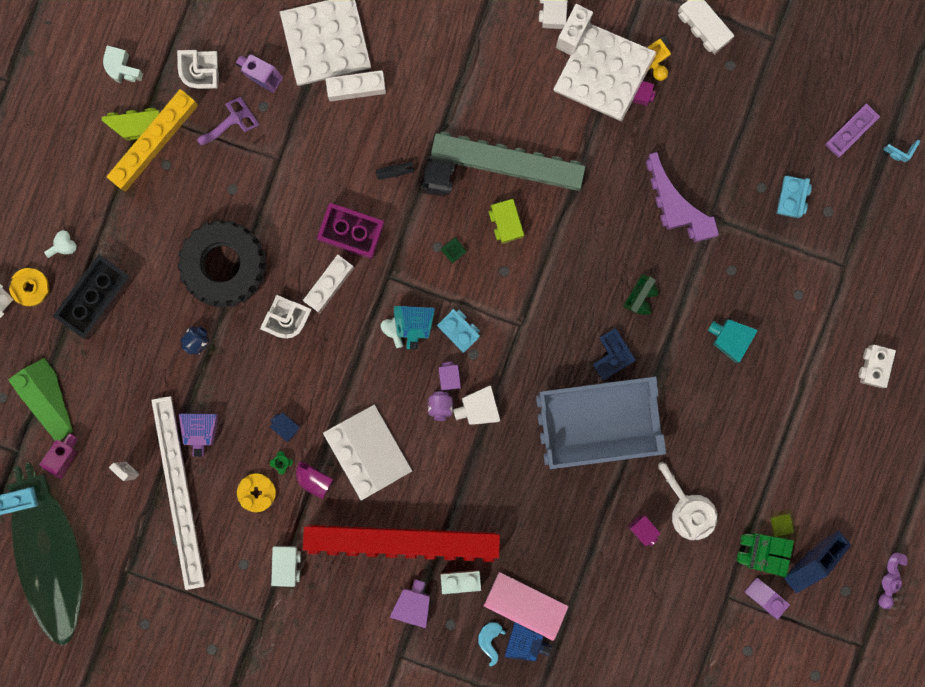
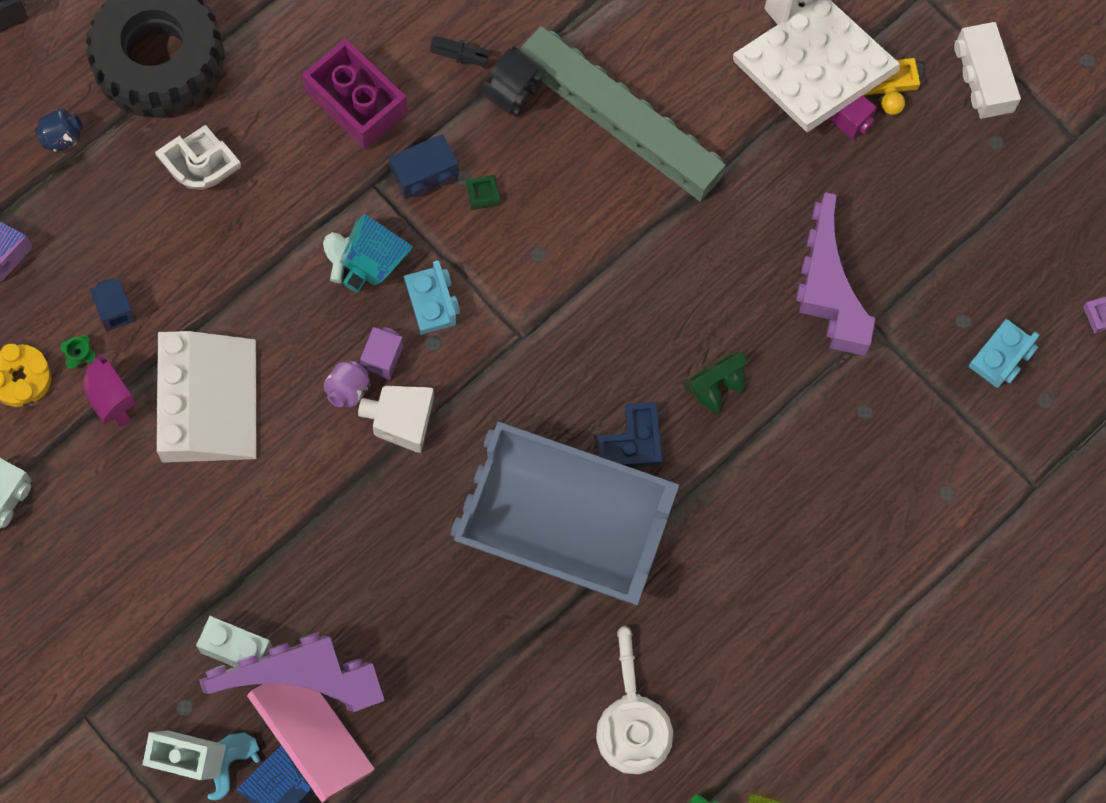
camera: 20 degrees right, 15 degrees down
(328, 284) = (284, 147): white brick -> none
(401, 541) = (180, 540): red brick -> none
(412, 605) = (145, 645): medium lavender torso -> none
(413, 254) = (424, 167): none -> dark blue brick
(467, 652) = (184, 755): none -> light aqua brick
(504, 576) = (304, 665): none -> medium lavender arch
(506, 221) = (577, 187): lime brick -> none
(644, 530) = (547, 708): magenta brick -> none
(732, 338) = (820, 501): teal torso -> none
(877, 366) = (1018, 649): white brick -> none

